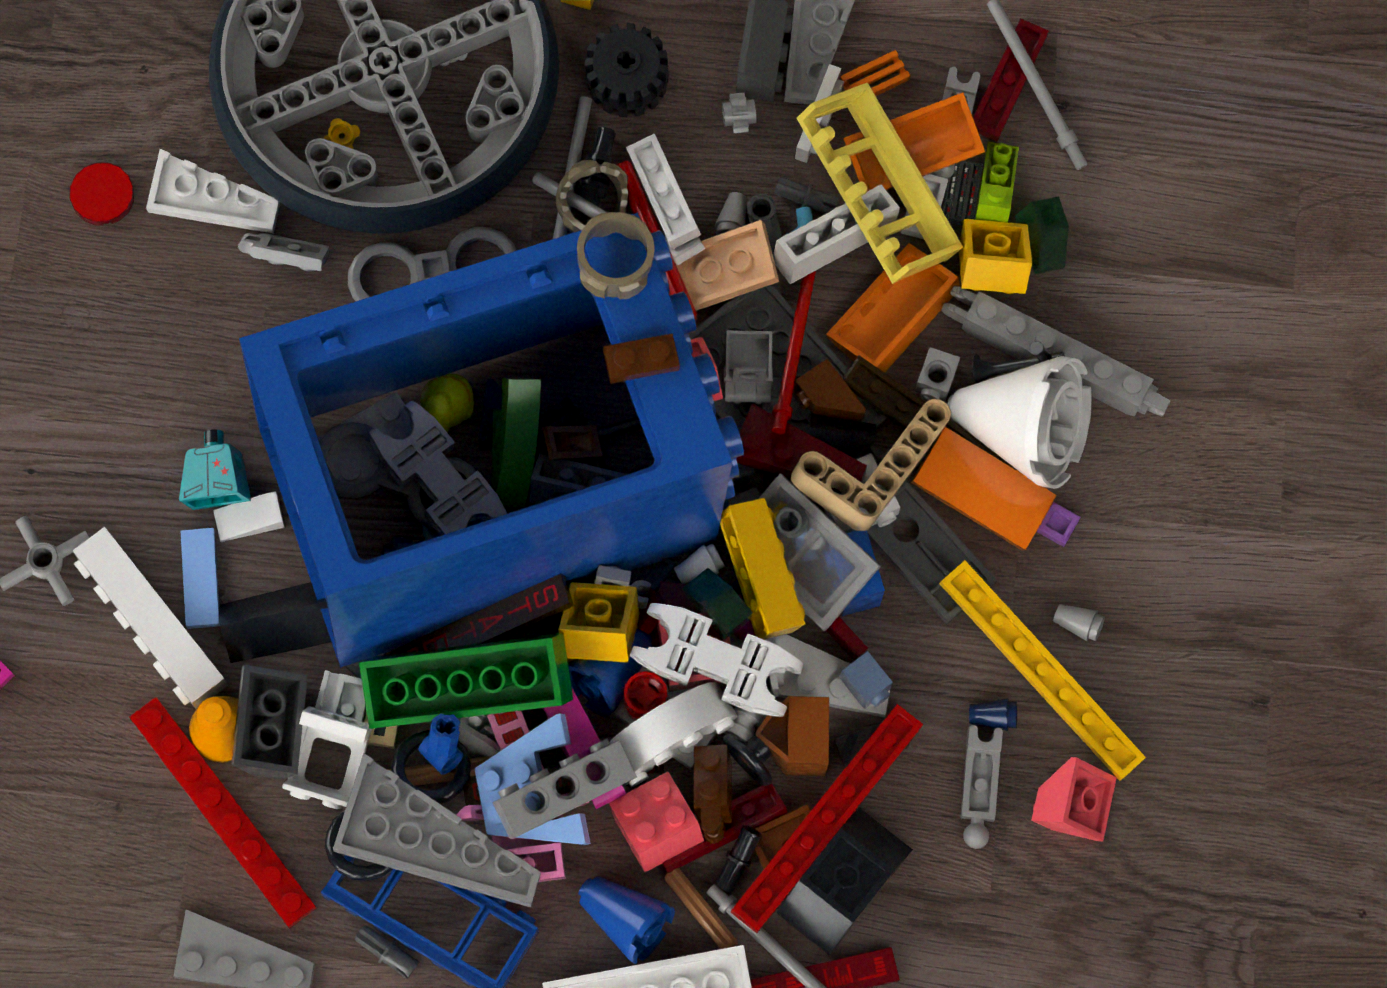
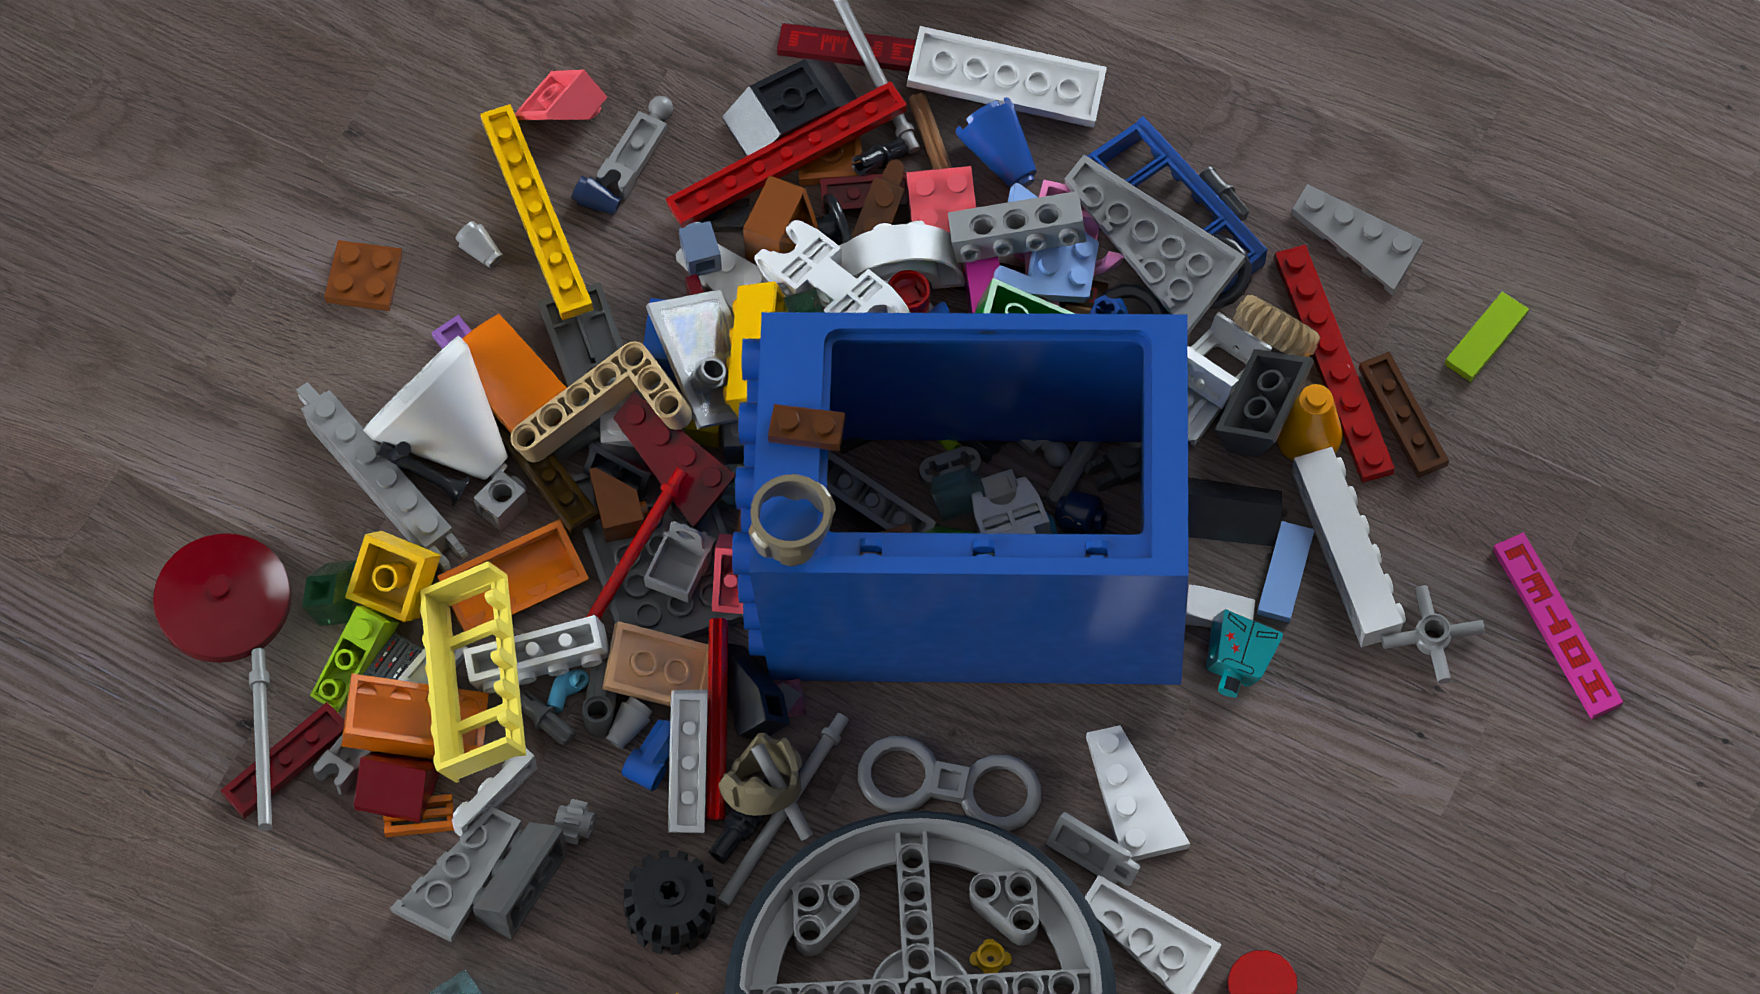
camera: 155 degrees left, 10 degrees down
(80, 896) = (1486, 336): none -> lime tile
(137, 777) = (1403, 414): none -> reddish brown plate
(253, 297) = (1132, 800): none -> white wing
(282, 803) = (1275, 327): none -> tan gear
(699, 190) = (649, 762): none -> blue piece
(904, 85) = (395, 785): none -> dark red slope
(1138, 203) = (222, 597): none -> dark red dish
(1172, 553) = (363, 275): none -> dark orange plate

